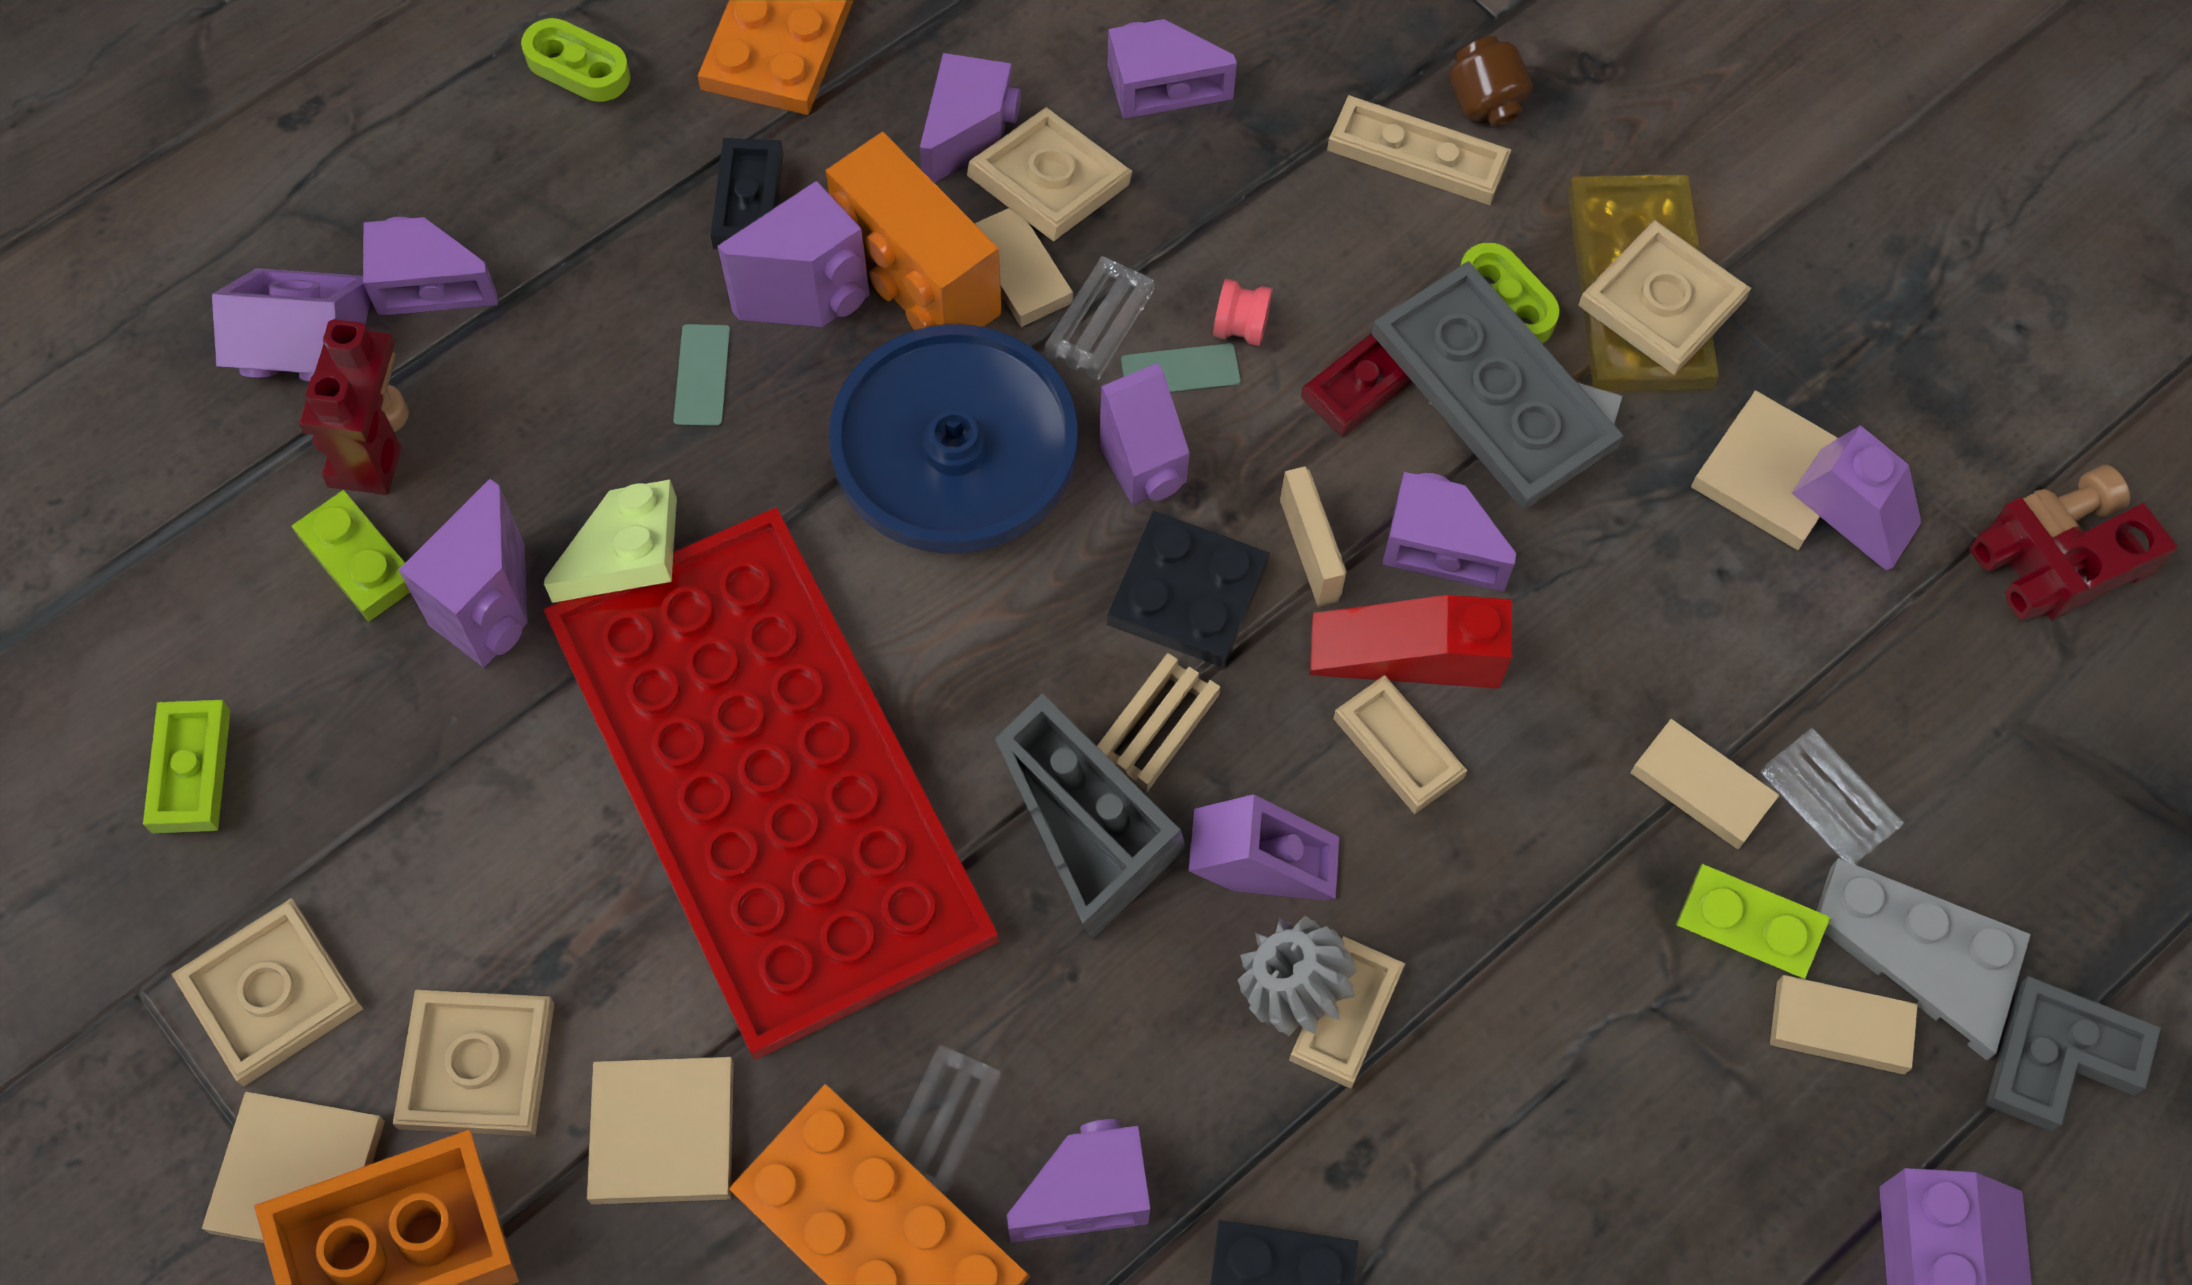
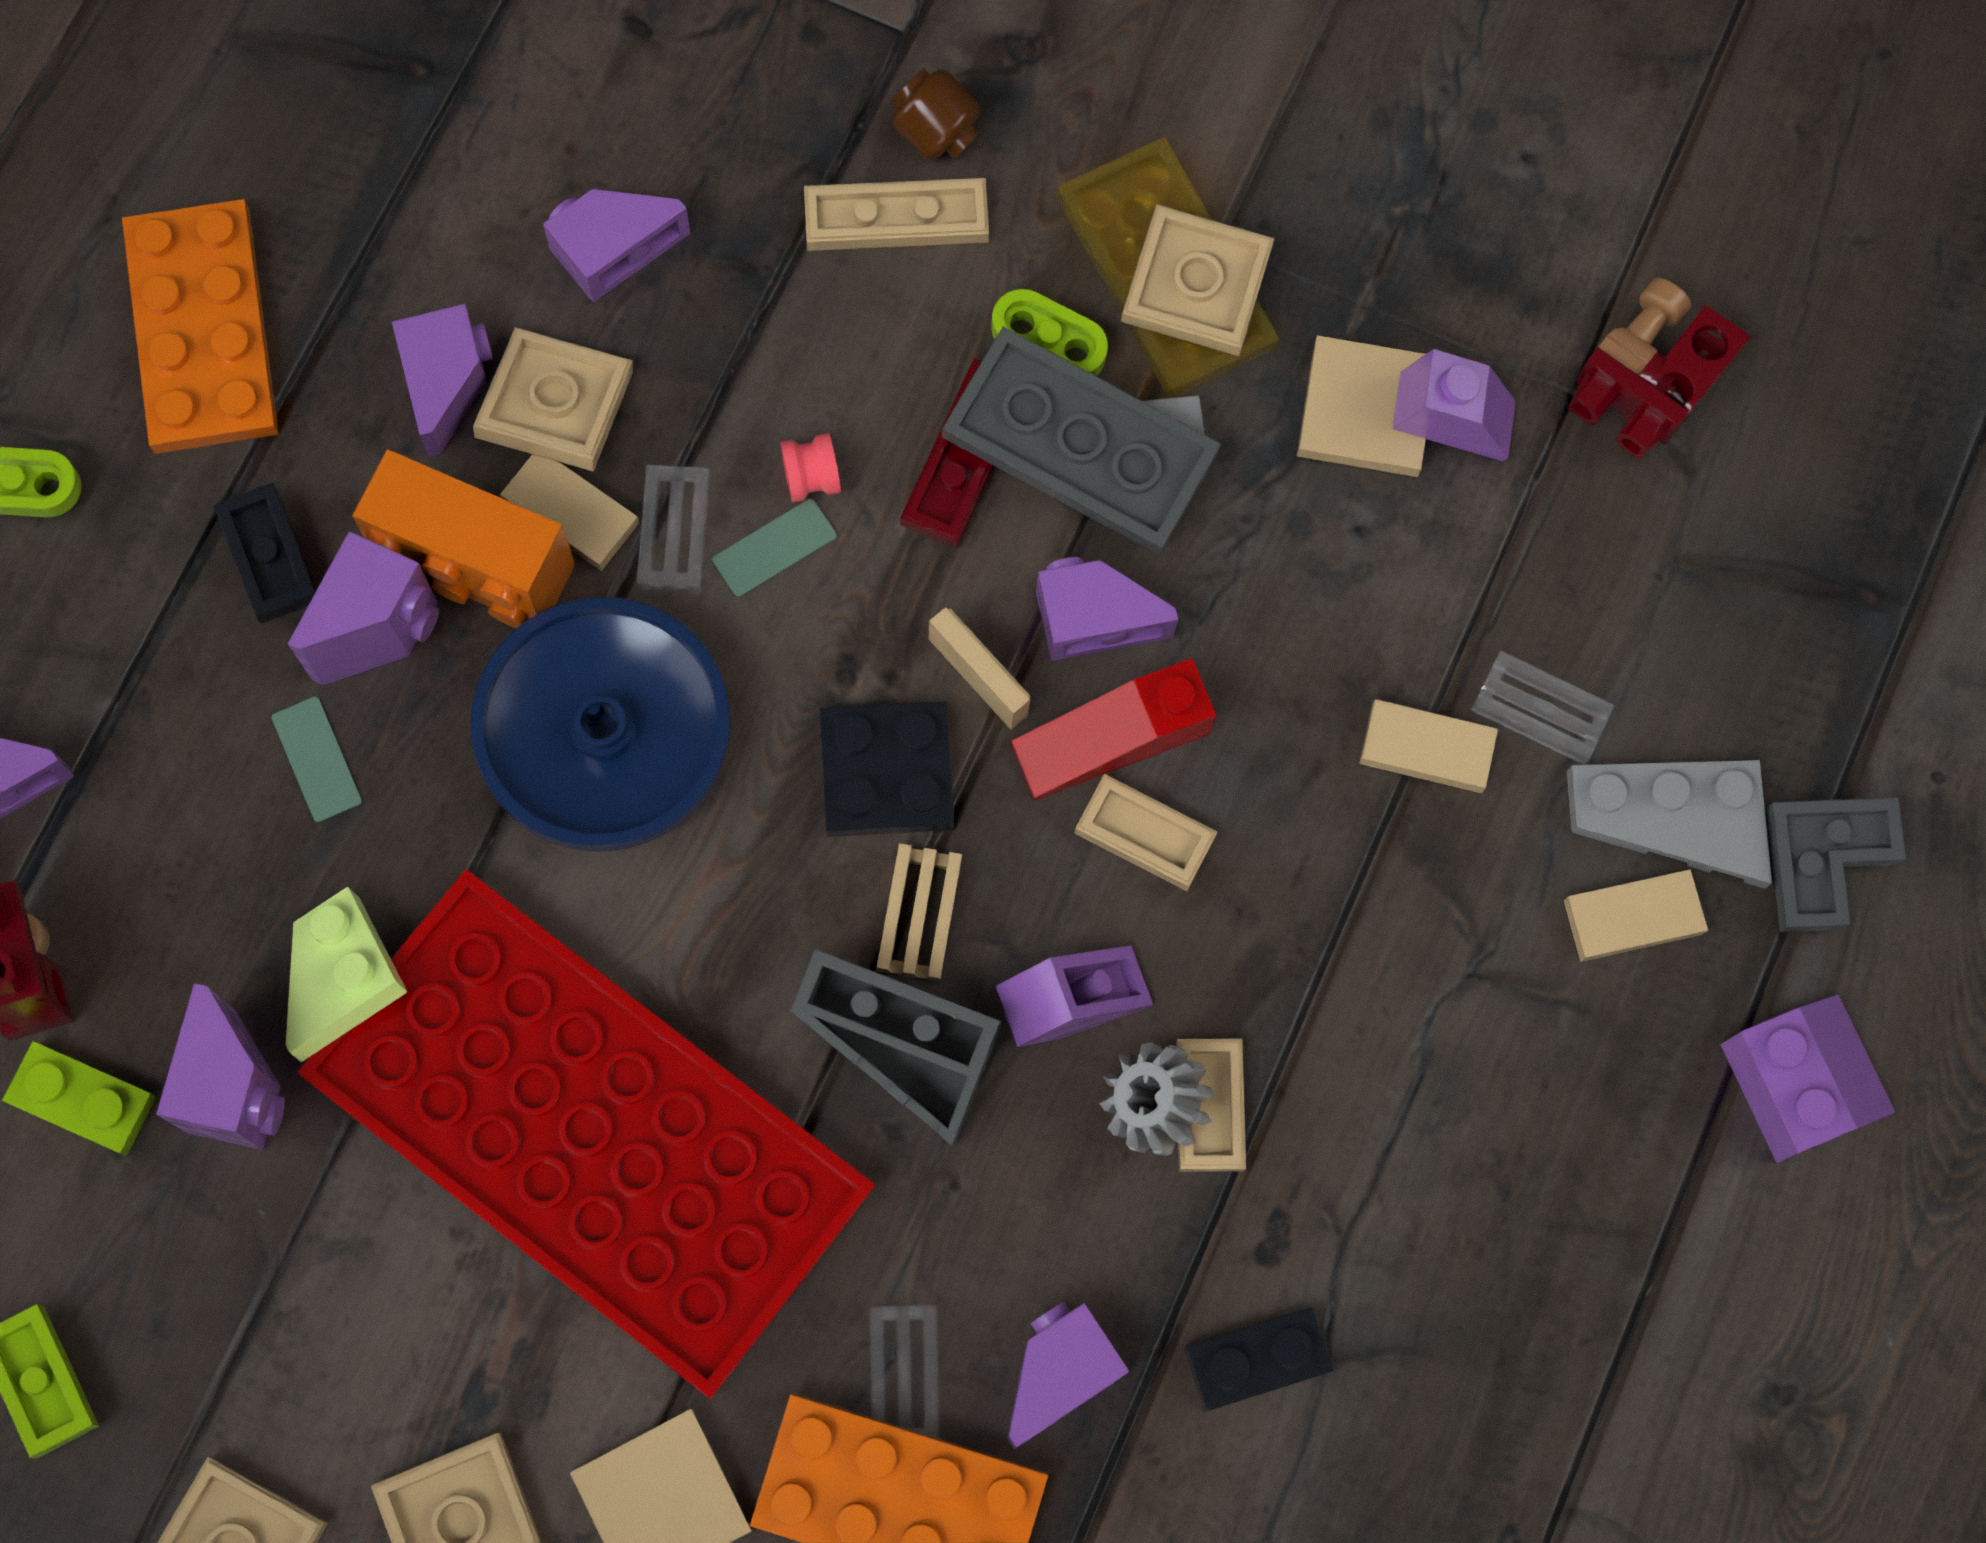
camera: 30 degrees left, 10 degrees up
(1143, 435) = (781, 644): medium lavender slope -> none
(1753, 921) = (1522, 858): lime plate -> none

